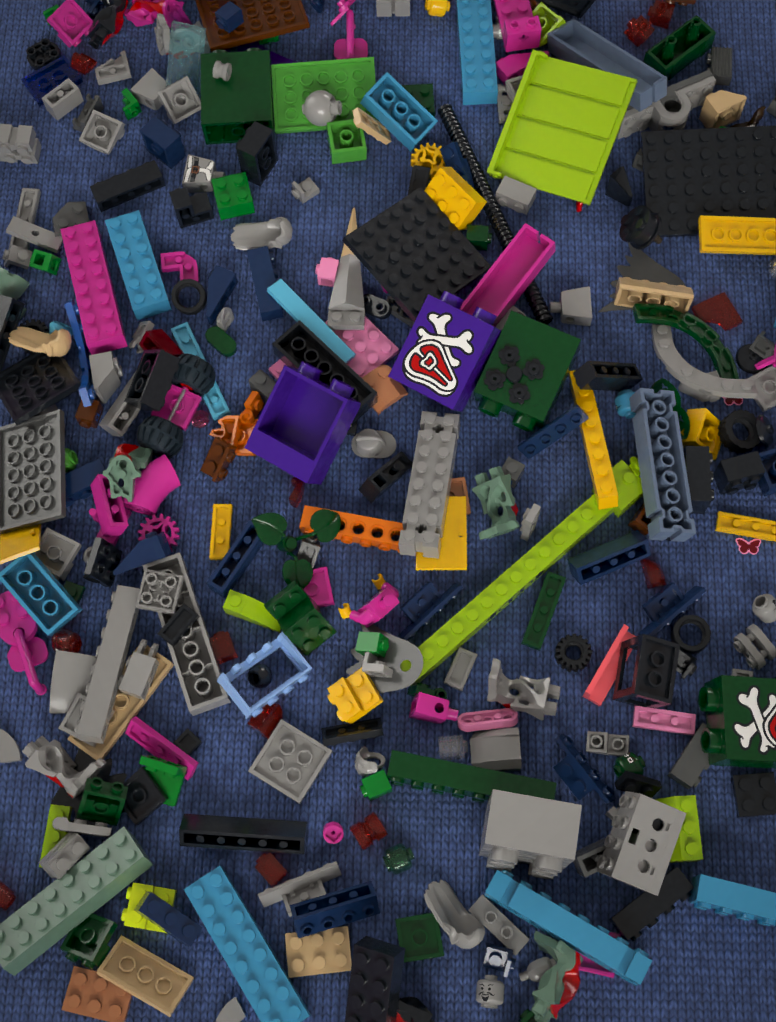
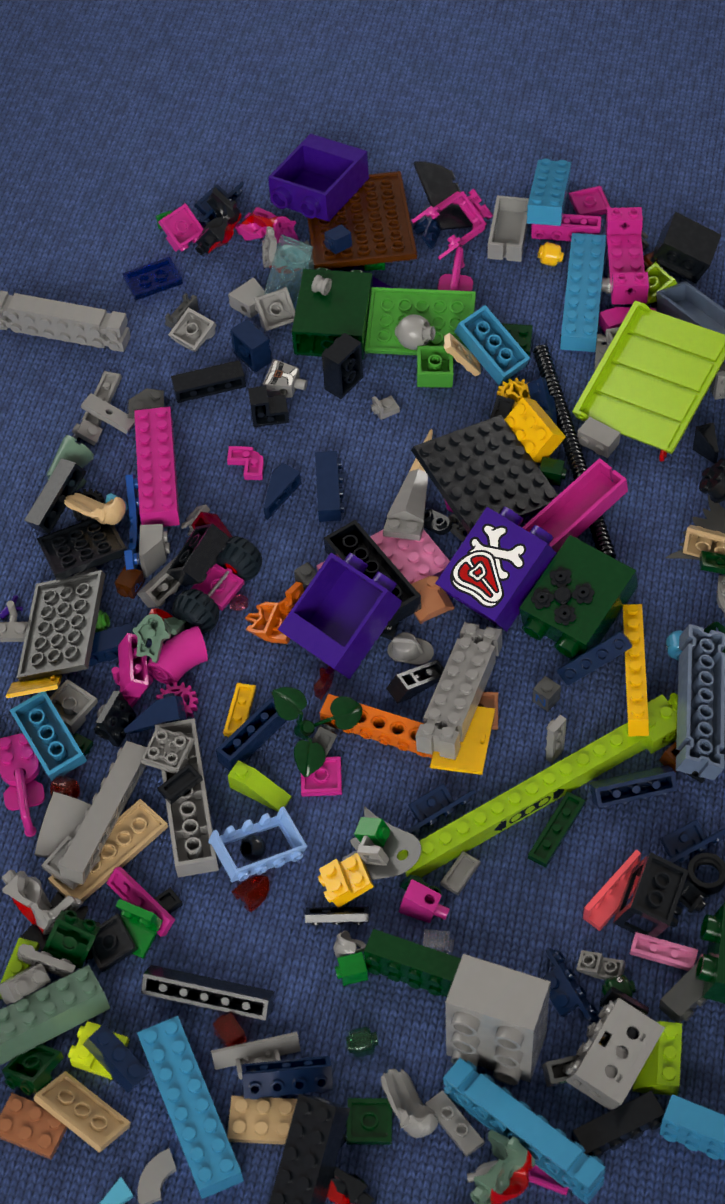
camera: 10 degrees right, 15 degrees down
(42, 53) = (148, 253): black tile -> none
(45, 262) = (113, 439): green brick -> none
(62, 99) = (160, 295): light grey brick -> none
(82, 63) = (185, 266): clear red bracket -> none
(113, 70) = (215, 276): light grey wing -> none
(131, 104) = (226, 308): green bracket -> none
(138, 265) = (204, 454): dark azure brick -> none
(139, 671) = (132, 824): light grey hinge -> none
(175, 296) = (246, 475): black tyre -> none
(187, 343) = (256, 586): medium azure tile -> none
(218, 459) = (250, 641): reddish brown bracket -> none
(221, 341) = (274, 535): dark green tile -> none
(223, 647) = (221, 815): clear red brick -> none
(225, 318) = (281, 513): light grey plate -> none
(233, 195) = (311, 403): green brick -> none
(268, 233) = (345, 441): light grey hair -> none
(290, 761) = (268, 933): light grey plate -> none
(300, 618) = (304, 797): dark green bracket -> none
(301, 311) = (356, 511): medium azure tile -> none
(327, 271) = (392, 483): bright pink brick -> none
(333, 832) = (299, 1007): dark pink tile -> none
(368, 831) = (328, 1012): clear red wheel -> none
(375, 607) = (382, 797): dark pink torso -> none
(487, 719) = (479, 924): bright pink plate -> none
(490, 992) = (432, 1184): light grey head -> none
(492, 495) = (525, 709): sand green hips -> none
(496, 749) = (484, 946): light grey slope -> none
(499, 959) = (448, 1154): bracket -> none
(528, 700) = (530, 907): light grey hips -> none
(564, 661) = (580, 884): black tyre -> none
(574, 306) = (639, 548): light grey torso -> none
(607, 376) = (659, 611): black brick -> none
(653, 573) = (677, 810): clear red brick -> none

